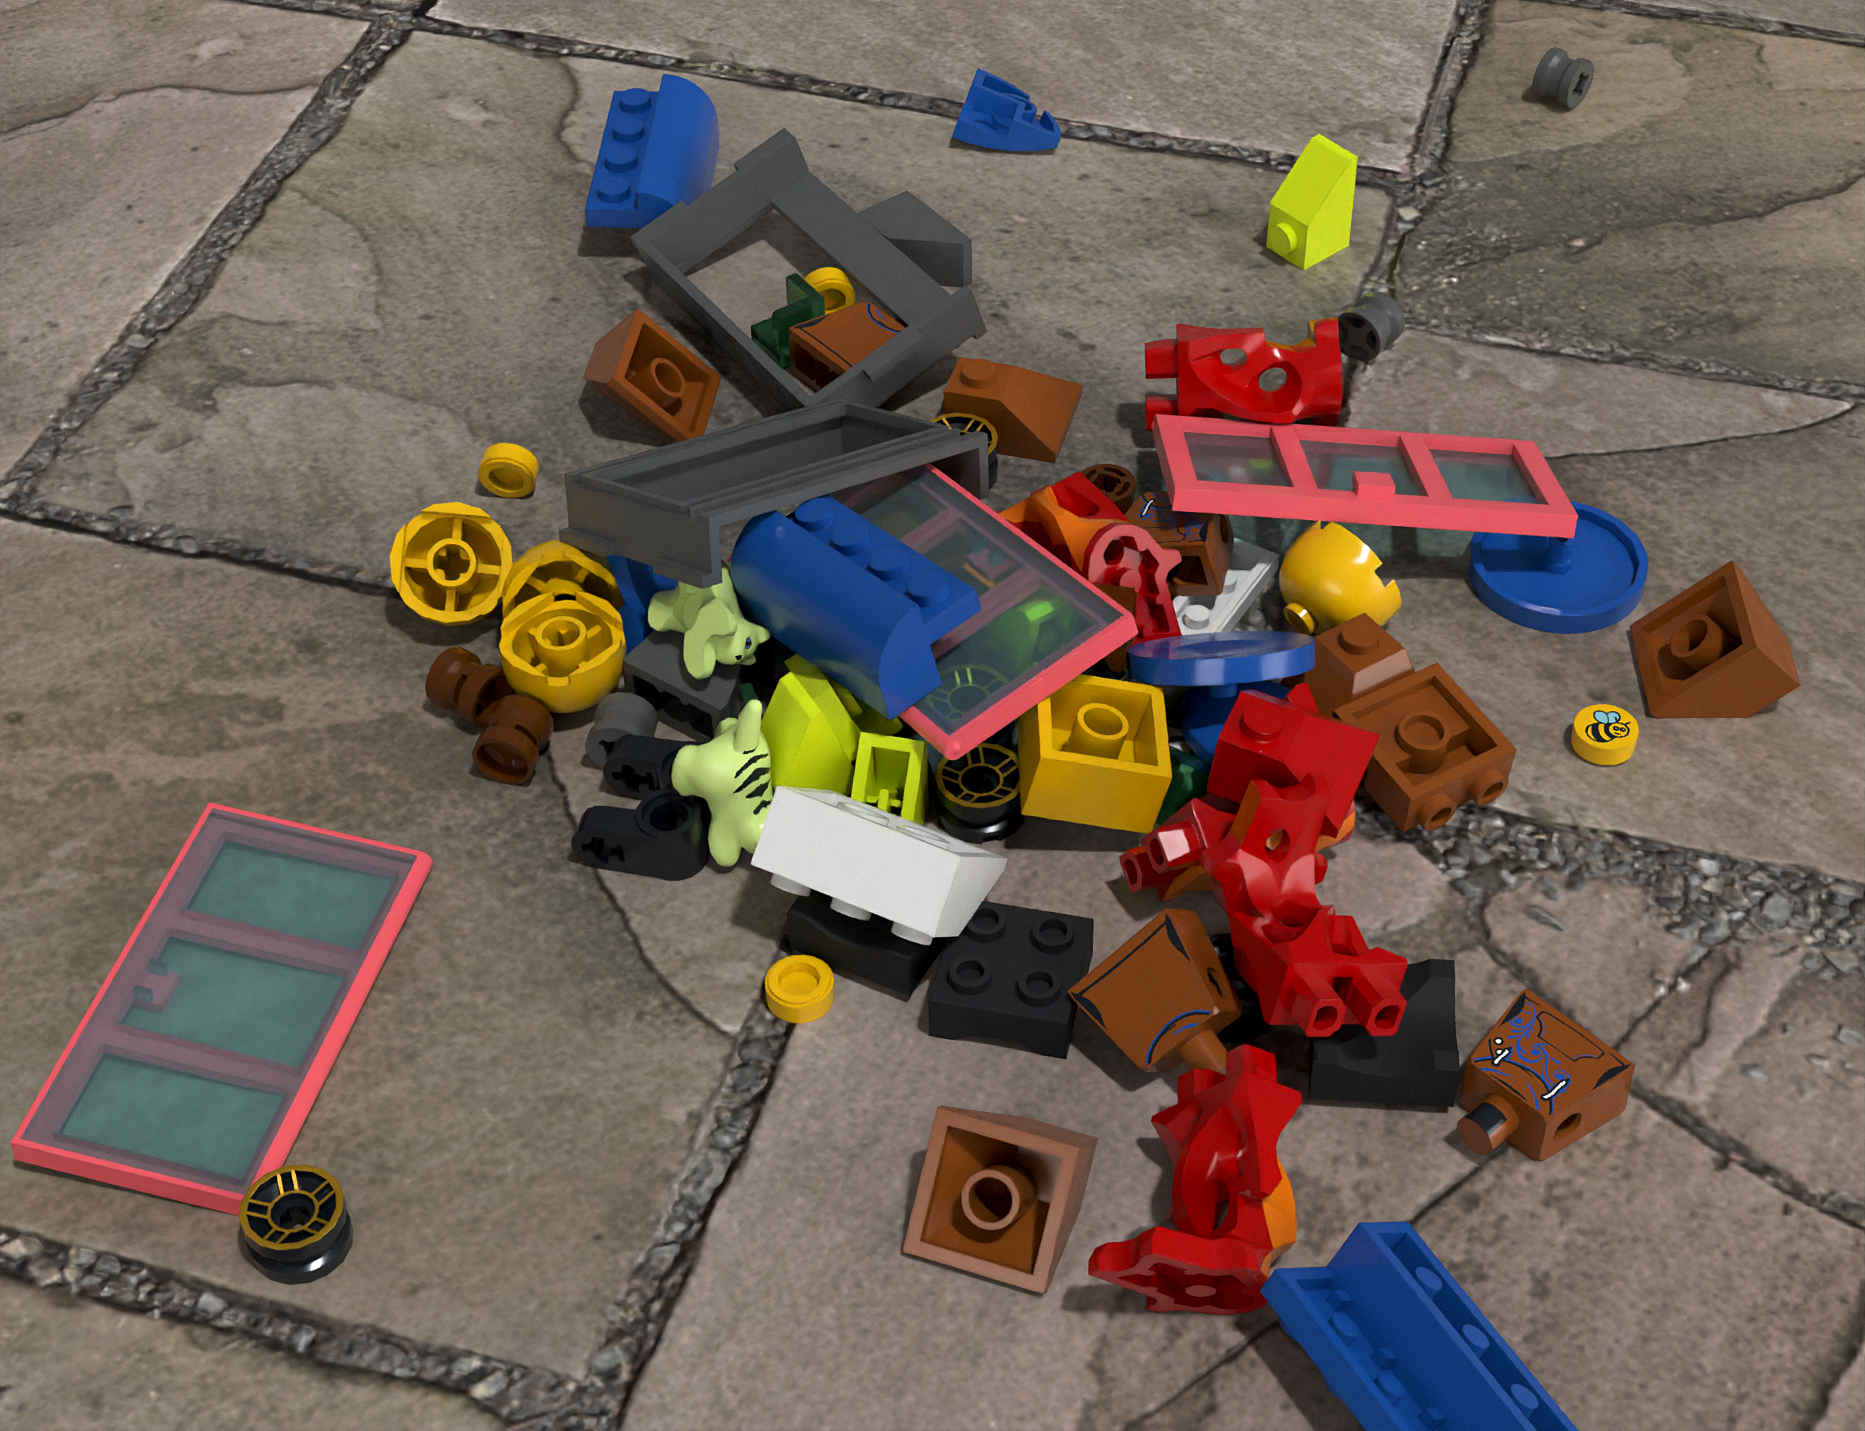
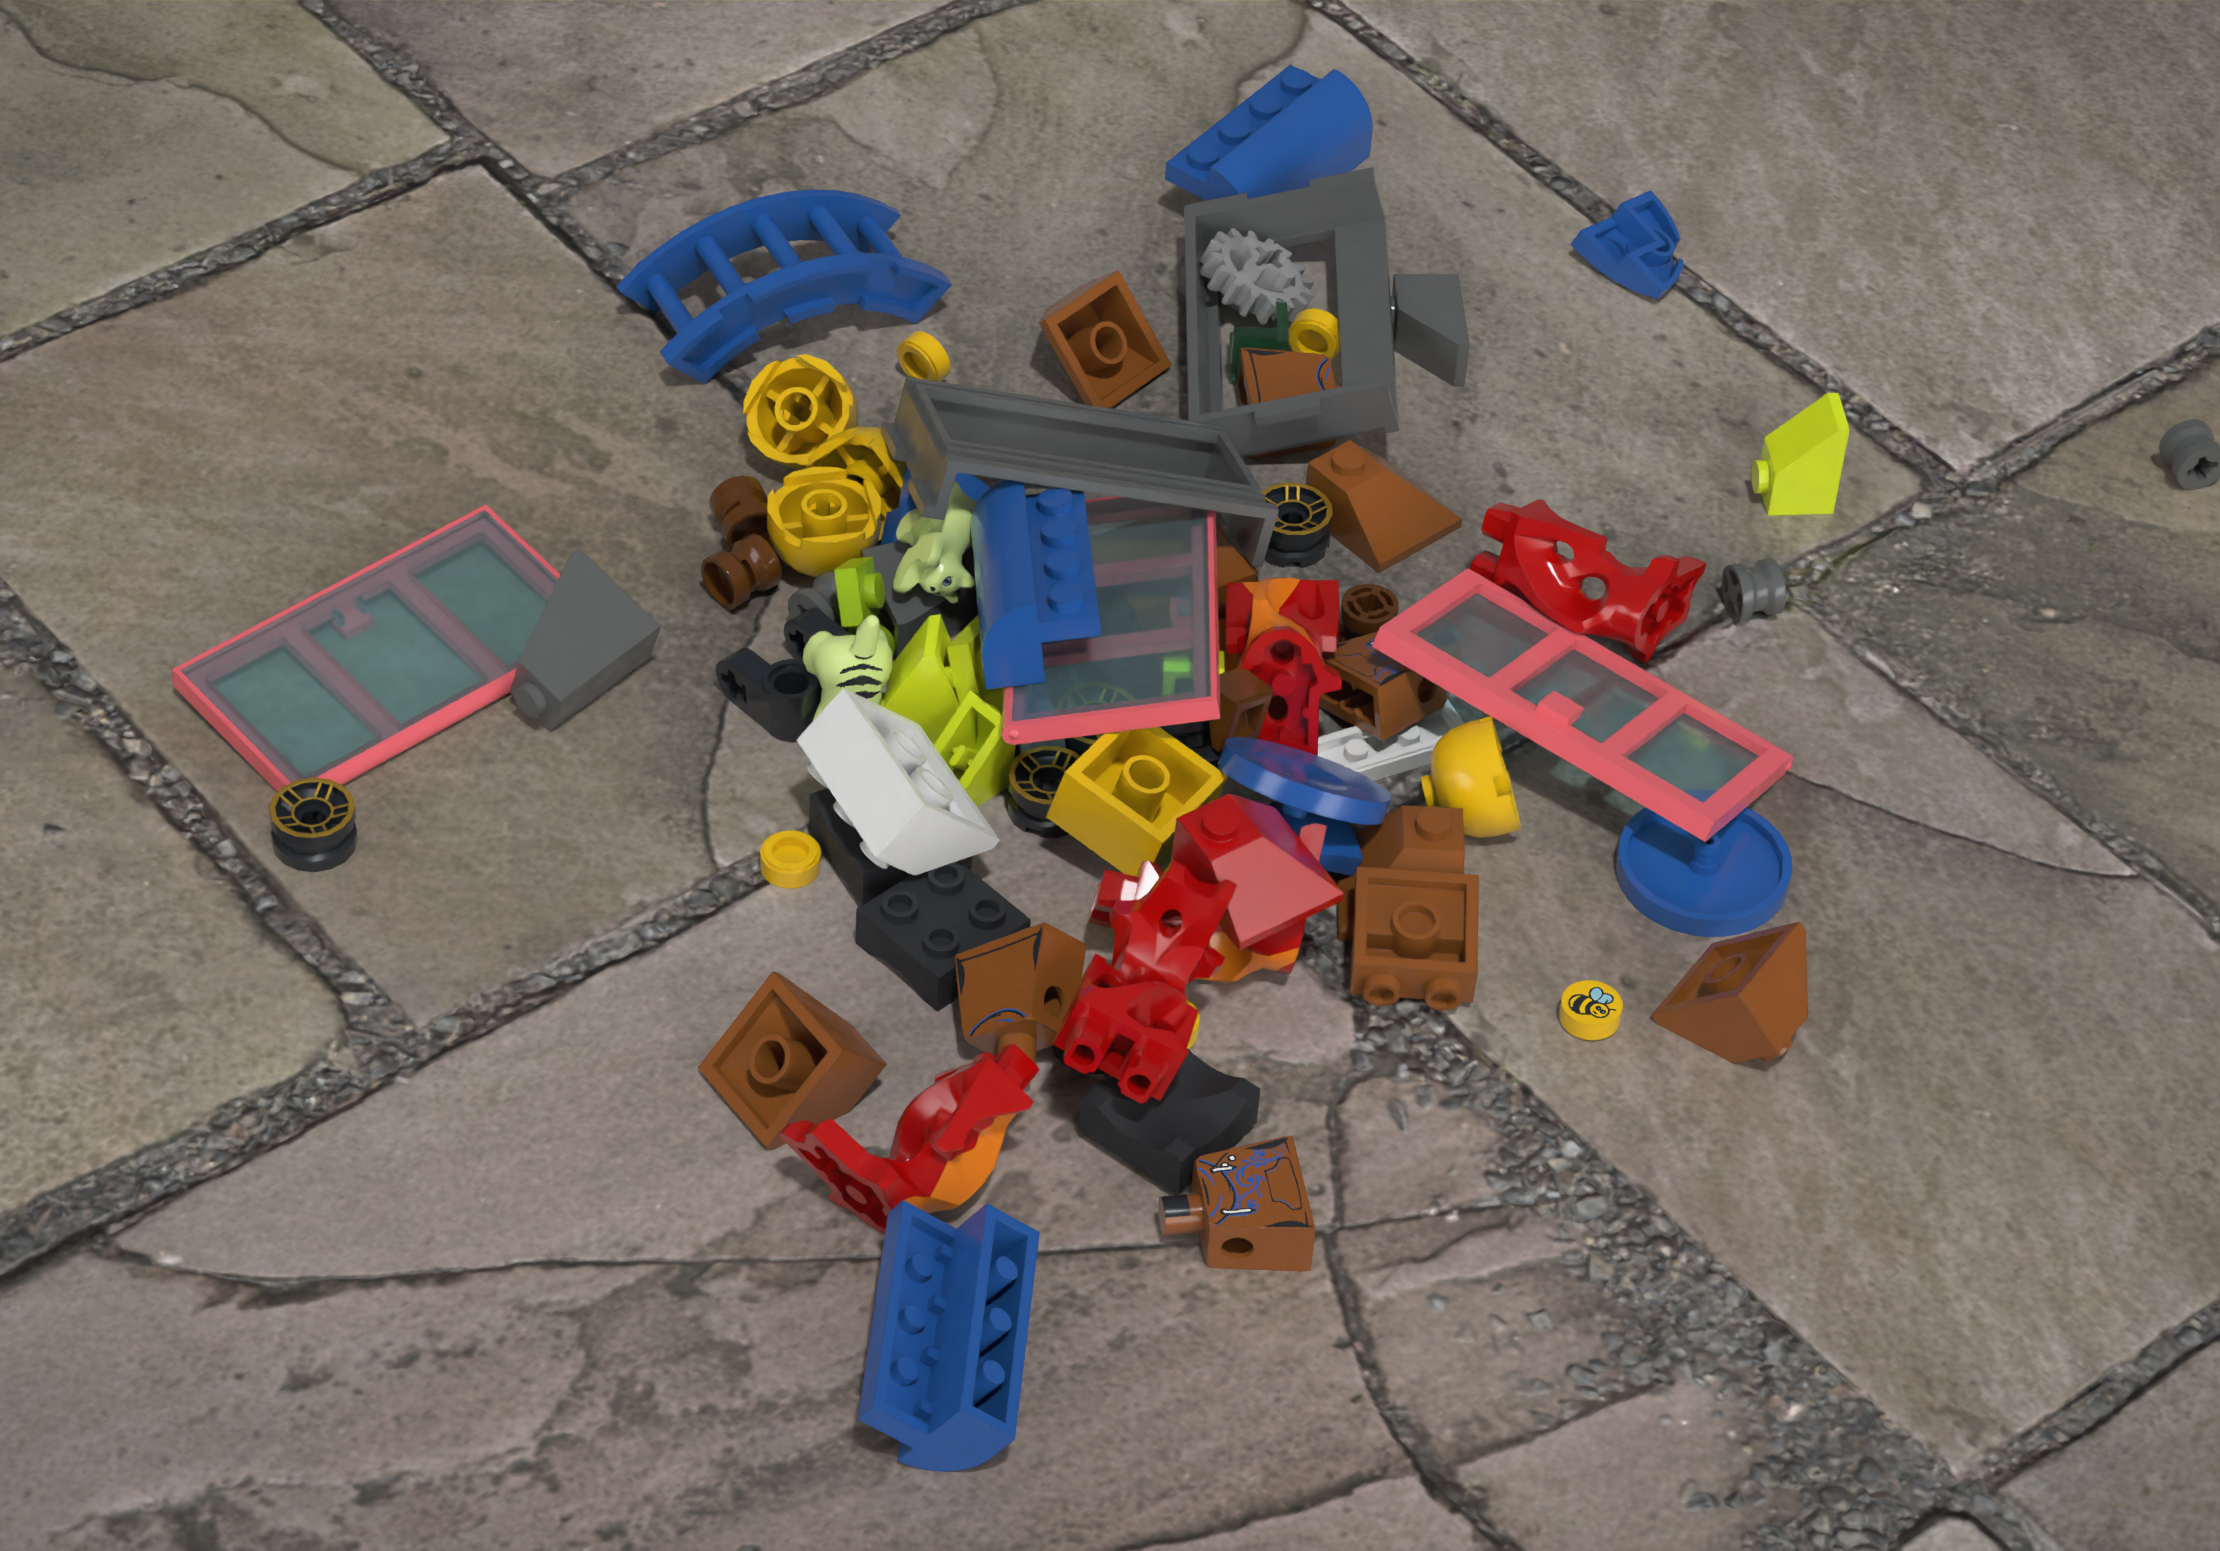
camera: 30 degrees right, 0 degrees up
(358, 458) = (796, 291): none -> blue fence
(421, 886) = (581, 644): none -> dark grey slope
(668, 698) = (860, 594): none -> lime plate
(735, 269) = (1255, 275): none -> light grey gear

